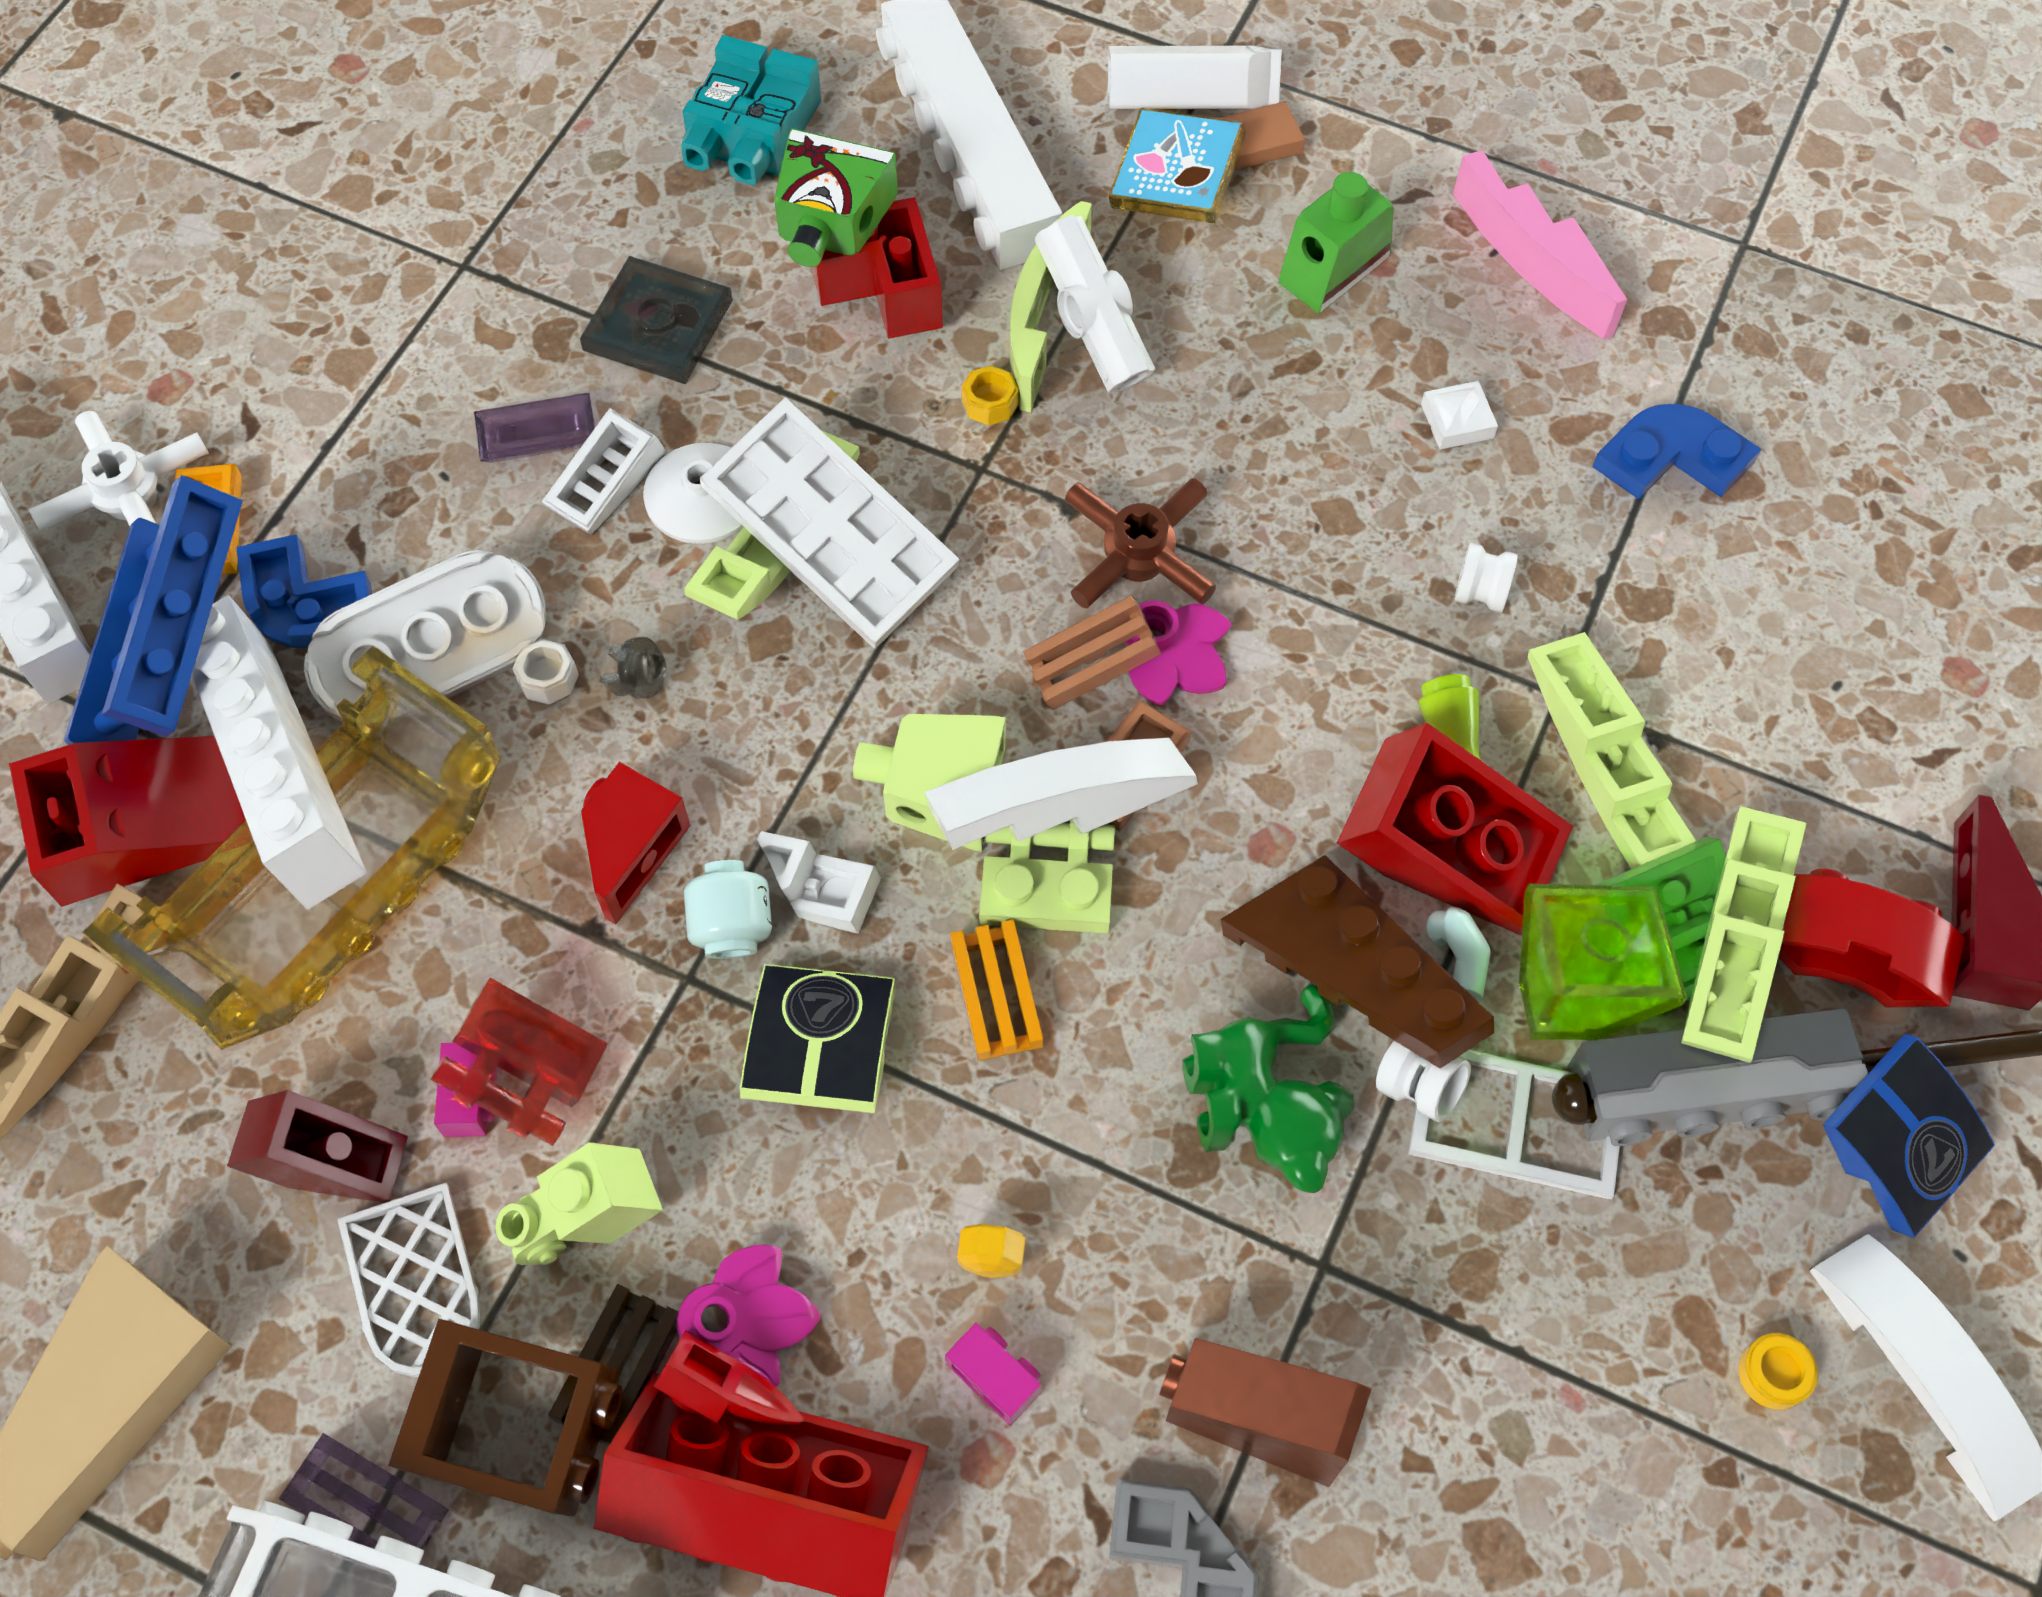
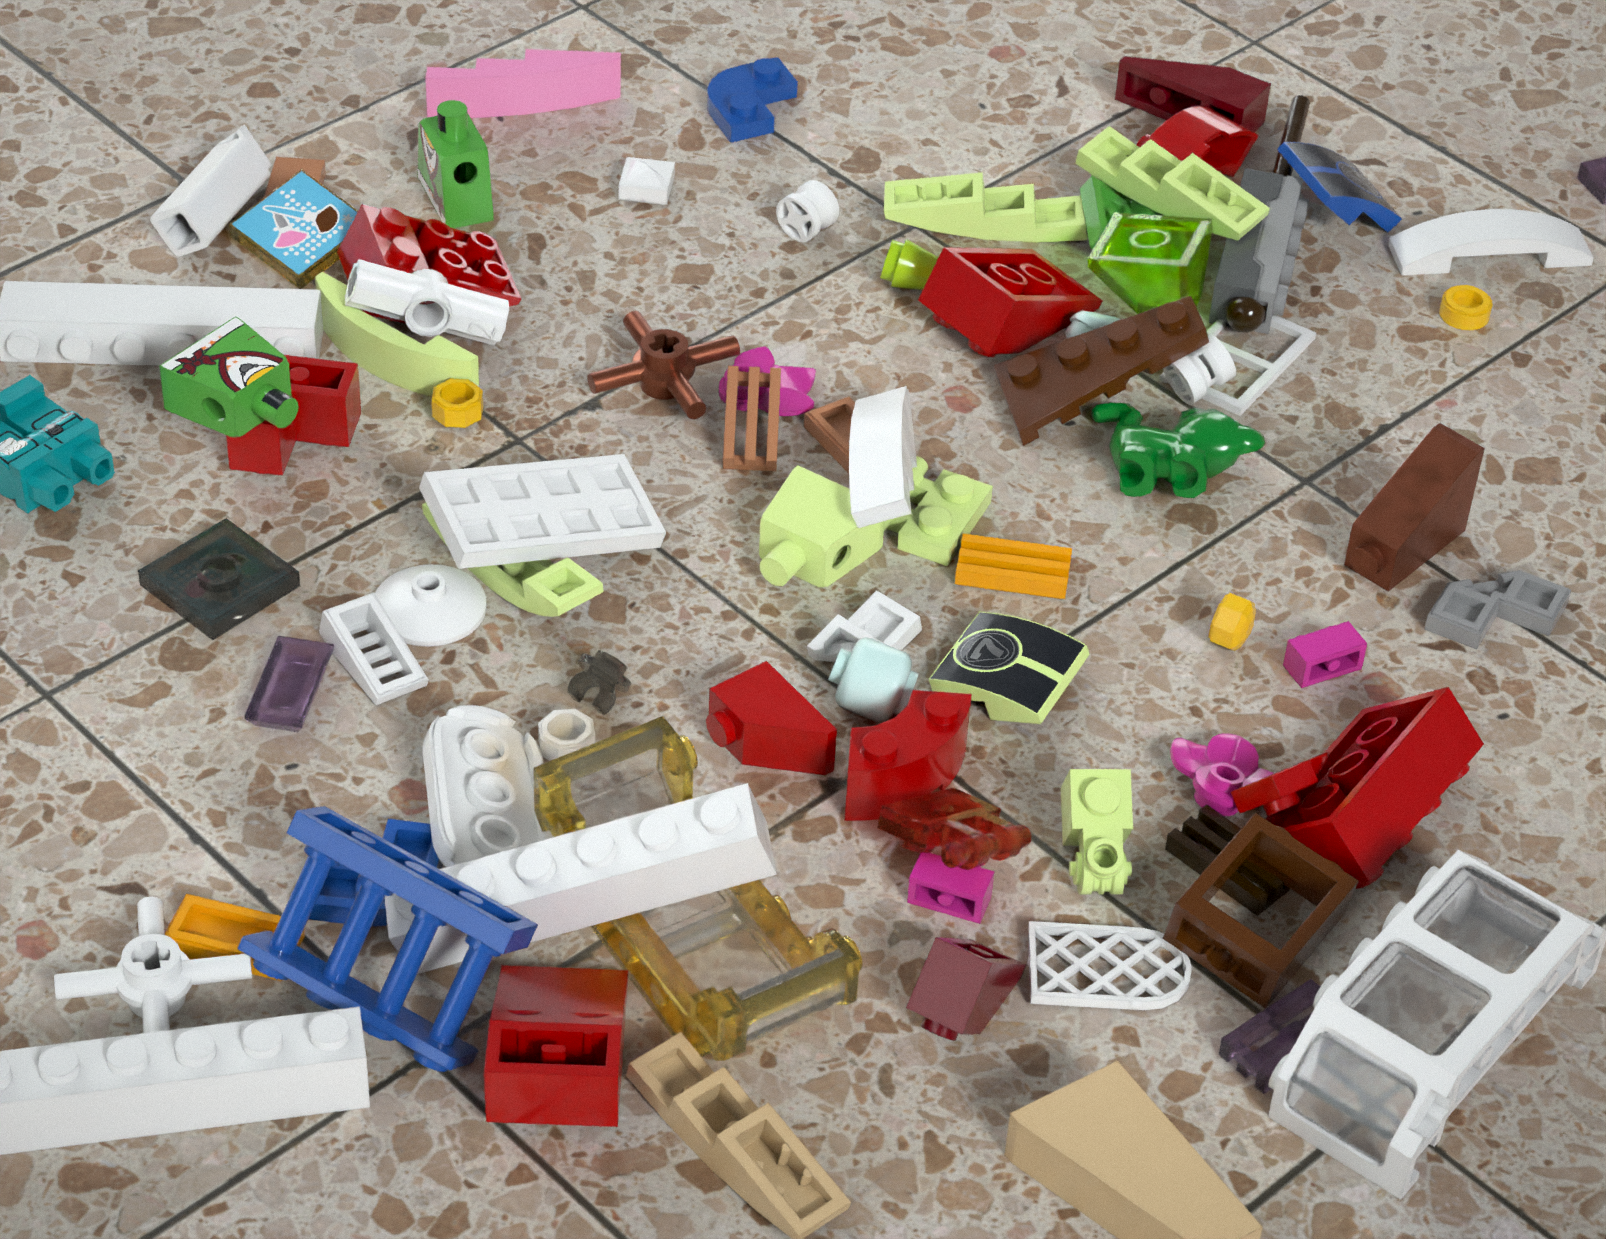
camera: 70 degrees left, 20 degrees down
(619, 983) = (907, 753): none -> red brick
(1187, 288) = (416, 244): none -> red slope

